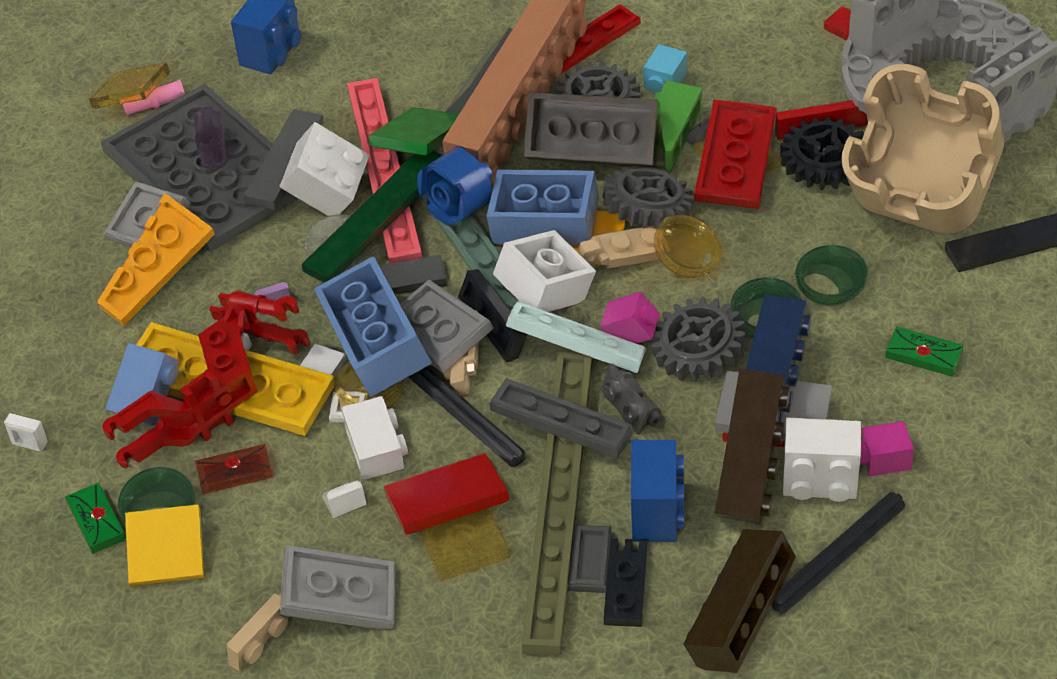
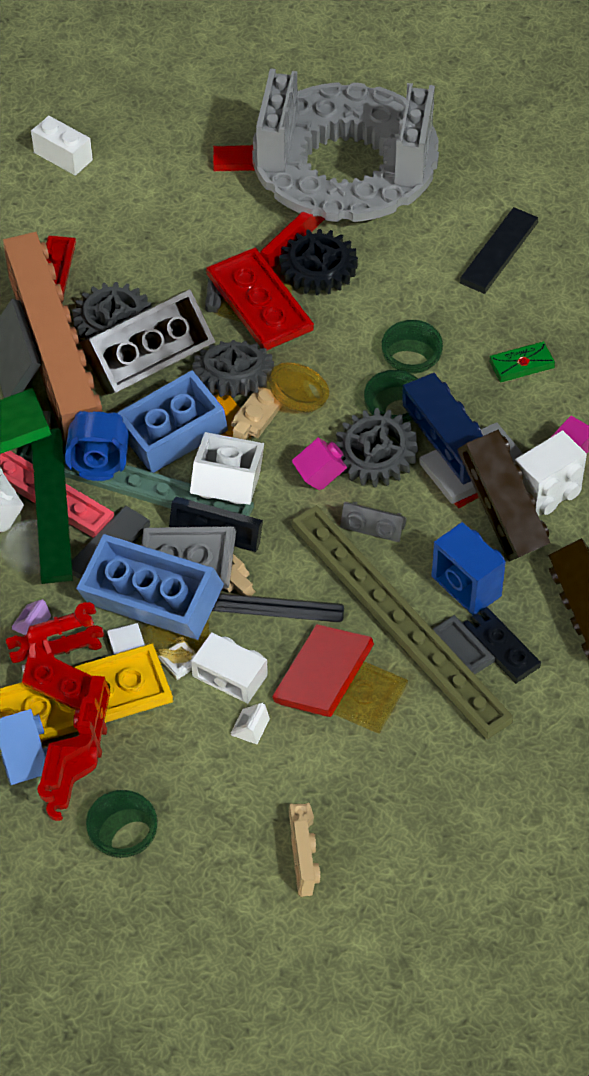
camera: 45 degrees left, 5 degrees up
(95, 518) = (85, 869): green tile -> none
(164, 545) = (166, 849): yellow tile -> none
(233, 469) = (148, 761): clear red tile -> none
(338, 588) = (326, 786): light grey tile -> none
(561, 418) = (348, 563): dark grey tile -> none
(576, 336) = (295, 500): light aqua tile -> none
(664, 65) = (141, 266): medium azure brick -> none
(678, 114) = (182, 279): bright green slope -> none
(924, 151) = (409, 217): tan piece -> none

